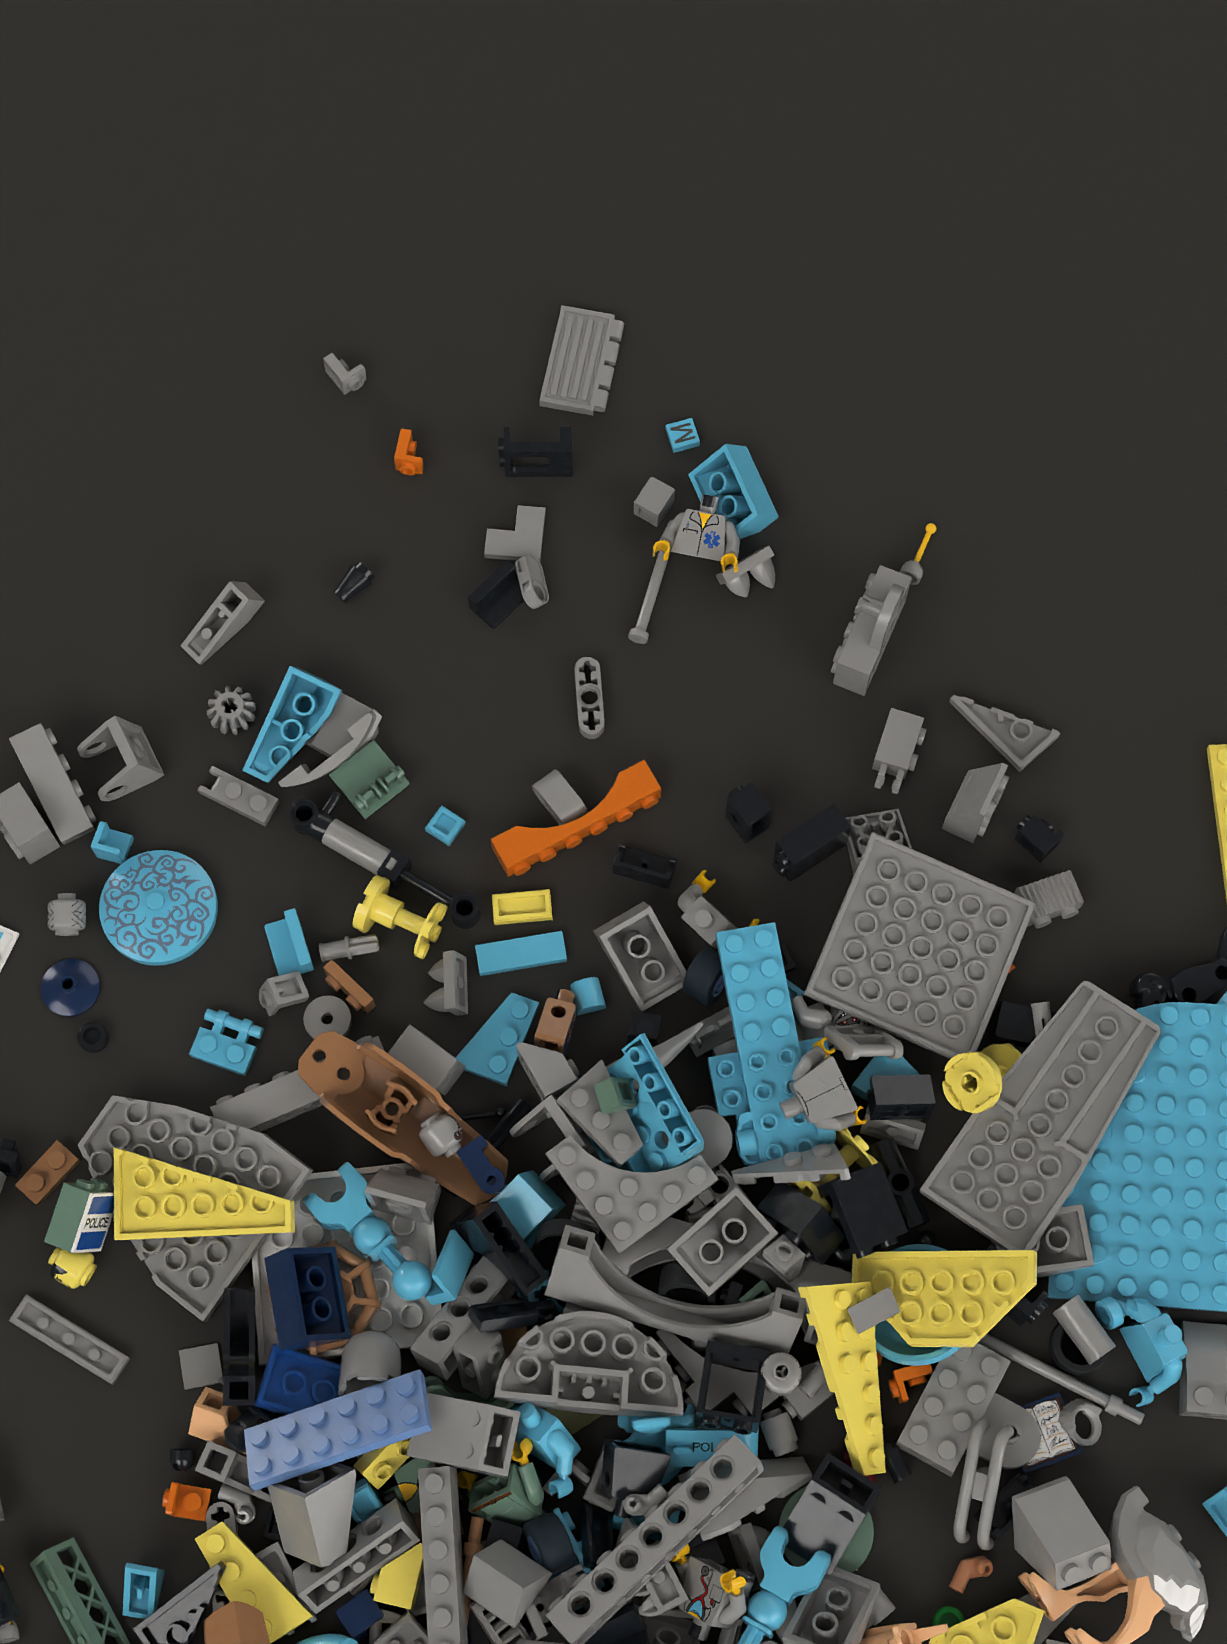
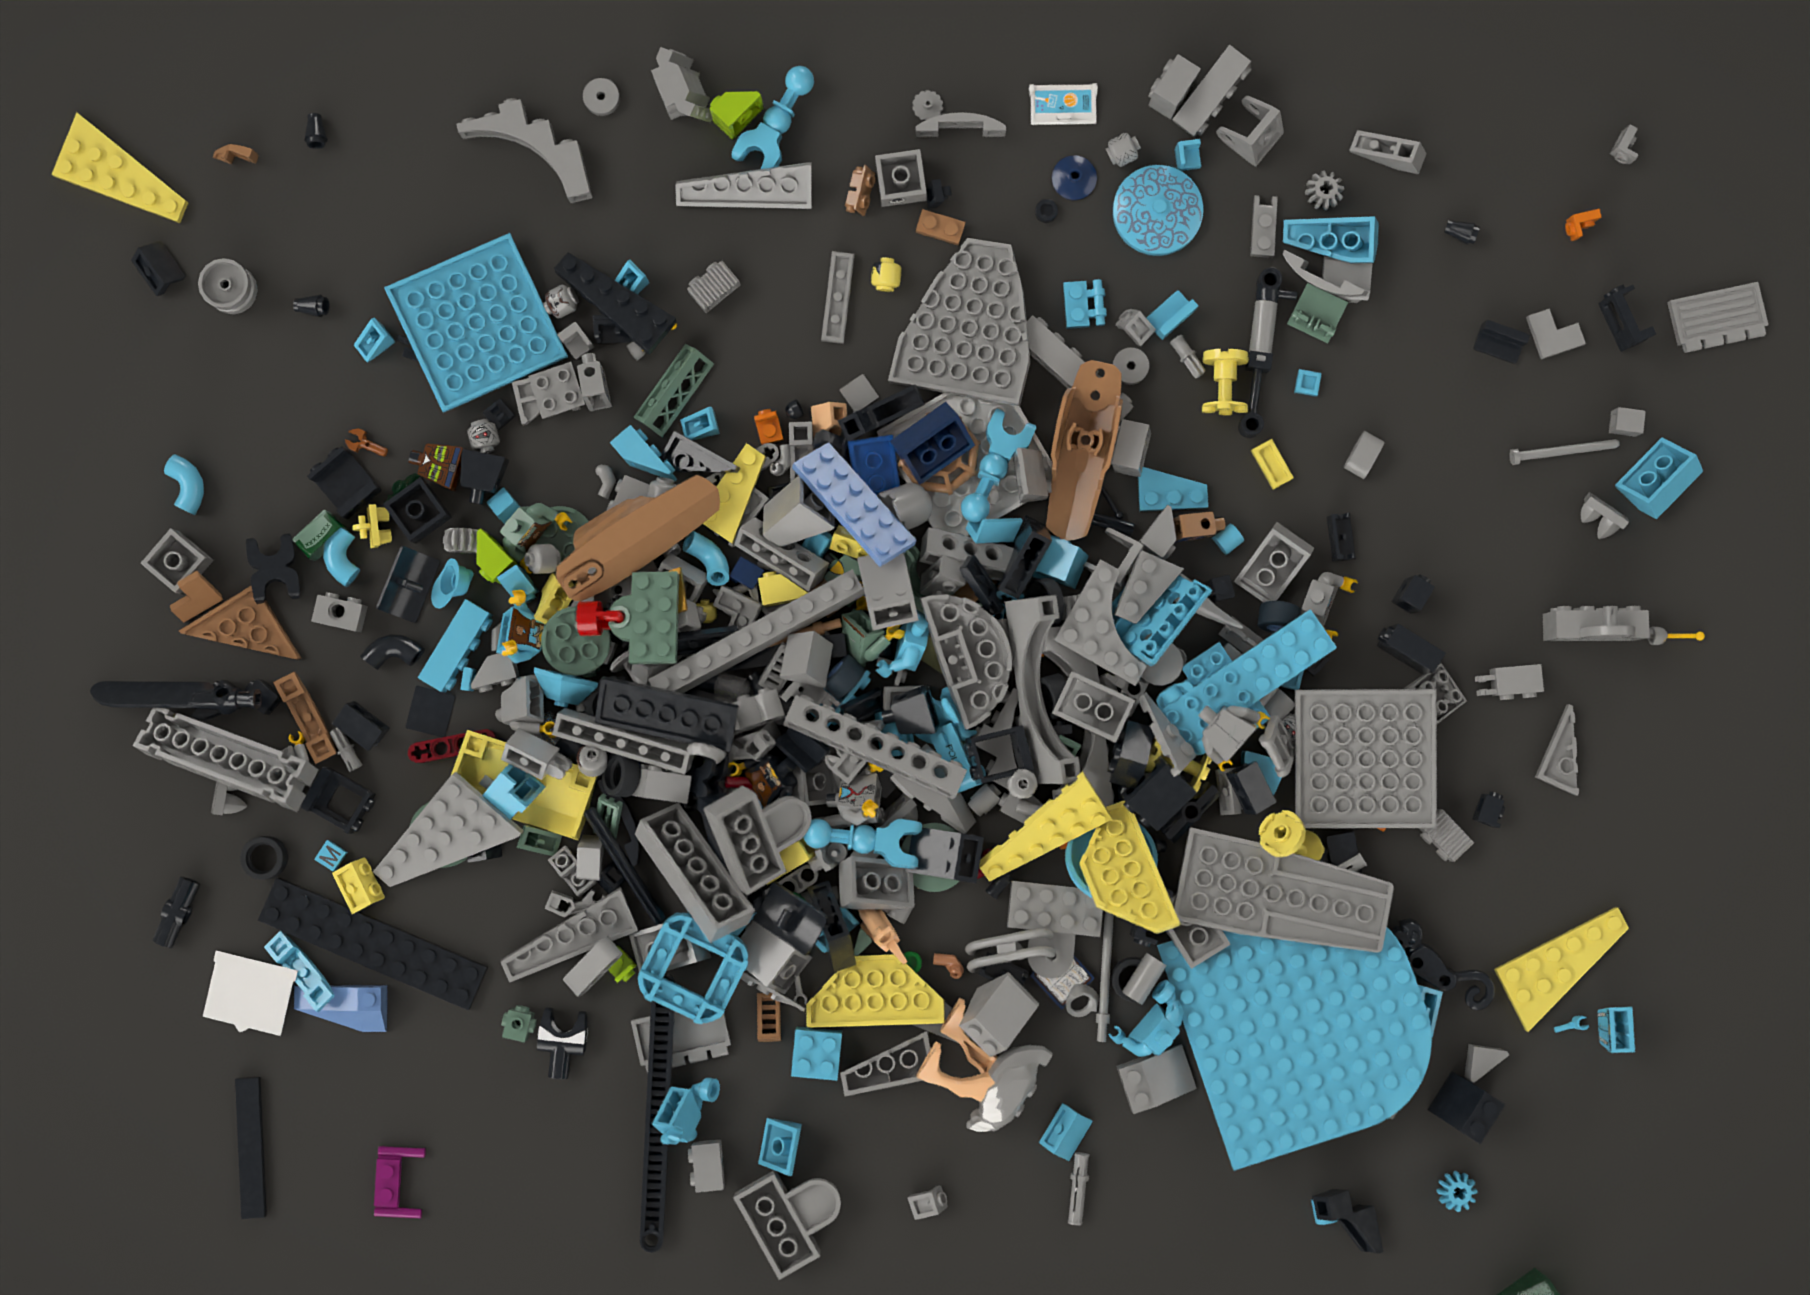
camera: 65 degrees right, 15 degrees up
(81, 1216) = (920, 265): piece -> none
(176, 1202) = (957, 324): light yellow wing -> none
(357, 996) = (1154, 379): medium nougat plate -> none
(441, 1134) = (1082, 482): light grey head -> none
(454, 994) = (1201, 438): light grey tile -> none
(488, 1178) = (1068, 525): dark blue leg -> none
(521, 953) = (1238, 478): medium azure tile -> none
(524, 846) = (1317, 446): orange arch -> none
(532, 581) = (1522, 360): light grey piece -> none
(597, 689) = (1462, 429): light grey beam -> none
(615, 1095) = (1162, 589): sand green slope -> none
(640, 1503) = (894, 726): light grey arm -> none
(682, 435) = (1691, 419): medium azure tile -> none
(701, 535) = (1614, 469): light grey torso -> none
(785, 1257) = (1101, 753): light grey bracket -> none
(810, 1017) = (1280, 700): light grey arm -> none
(873, 1310) = (1091, 829): light grey sticker -> none
(913, 1375) = (1062, 874): orange bracket -> none
(976, 802) = (1495, 754): light grey slope -> none

